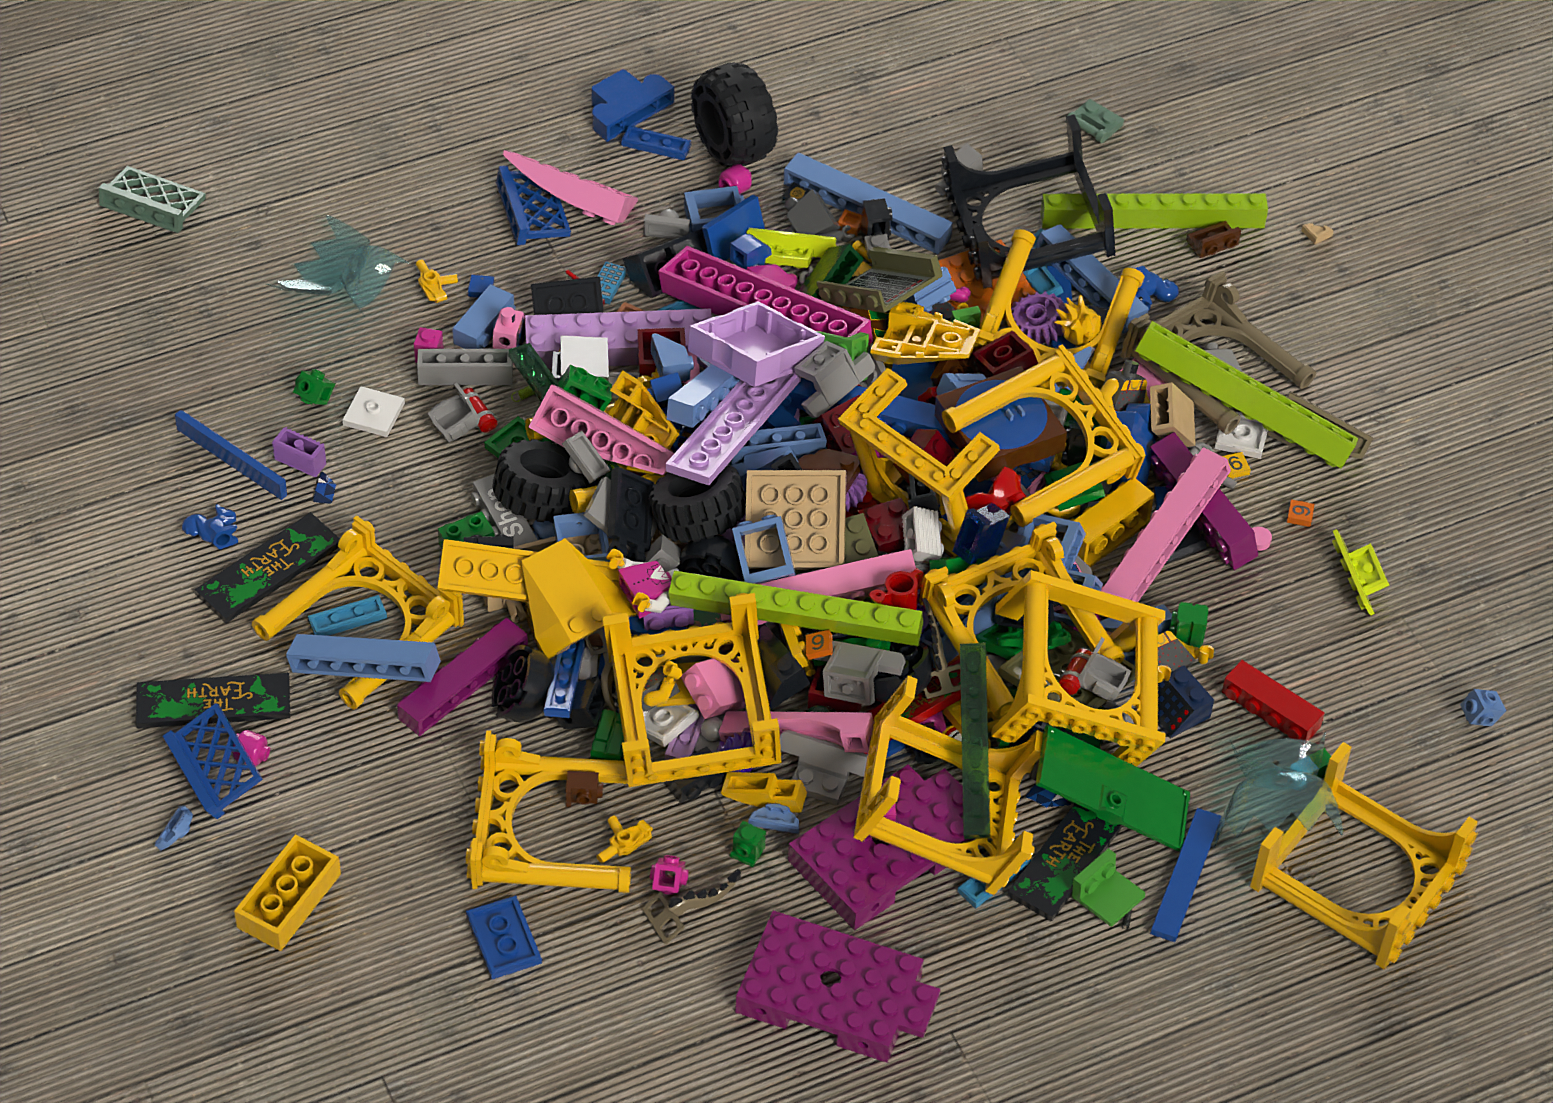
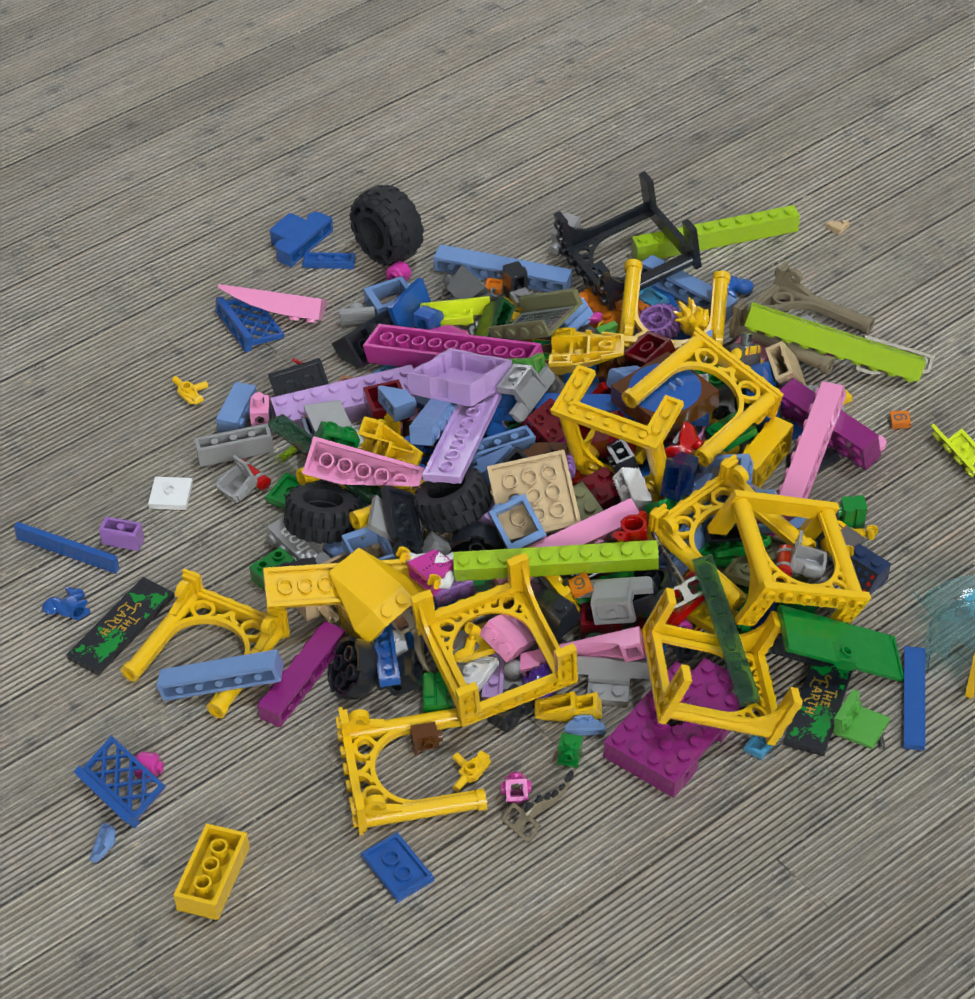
camera: 10 degrees left, 5 degrees down
(239, 697) = (82, 741): black tile -> none
(313, 387) = (118, 484): green brick -> none
(324, 489) = (148, 558): dark blue sticker -> none
(343, 265) = (117, 389): clear light blue piece -> none
(347, 616) = (196, 648): dark azure tile -> none
(428, 339) = (198, 430): dark pink brick -> none
(479, 284) = (225, 385): blue tile -> none
(584, 457) = (353, 486): light grey tile -> none
(611, 279) = (327, 358): dark azure tile -> none
(664, 387) = (401, 422): blue brick -> none
(795, 191) = (443, 272): tile -> none
(868, 1007) = (706, 854): magenta piece -> none
(1046, 798) = (786, 664): sticker -> none
(1097, 120) = (660, 181): sand green plate -> none
(1214, 239) = (766, 244): reddish brown bracket -> none
(1246, 438) = (841, 373): white plate -> none
(1272, 702) = (931, 556): red brick -> none

